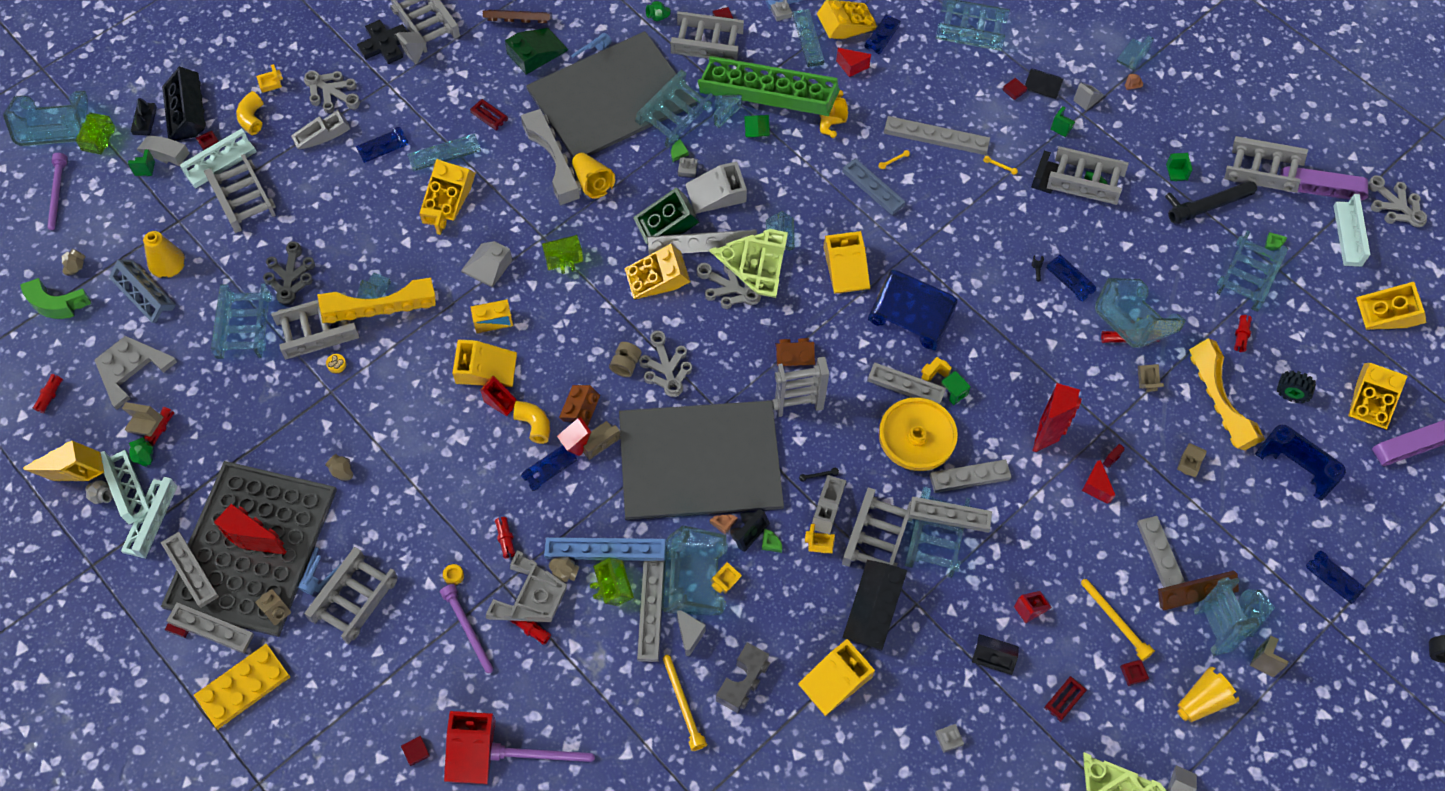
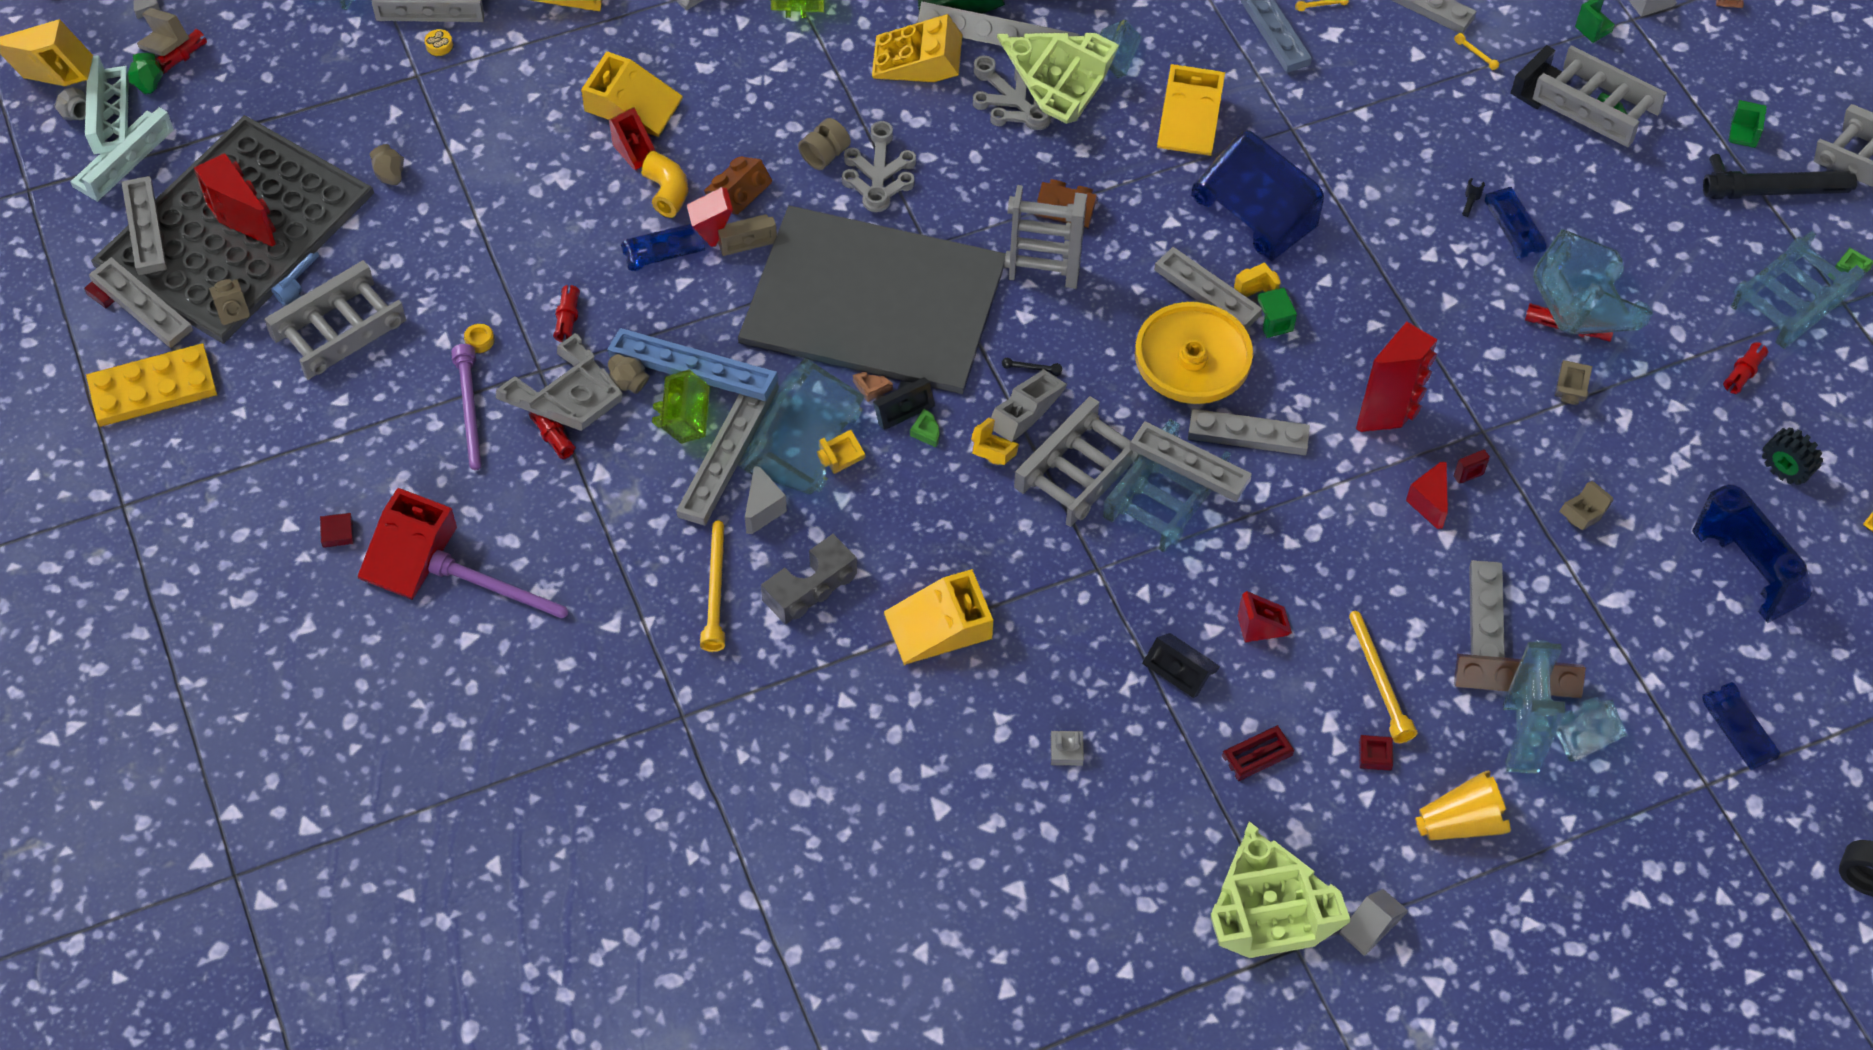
camera: 20 degrees right, 5 degrees down
(491, 316) = (667, 41): yellow brick -> none
(874, 604) = (1035, 544): black slope -> none
(1209, 360) = (1673, 386): yellow arch -> none
(1266, 661) = (1578, 792): dark tan panel -> none

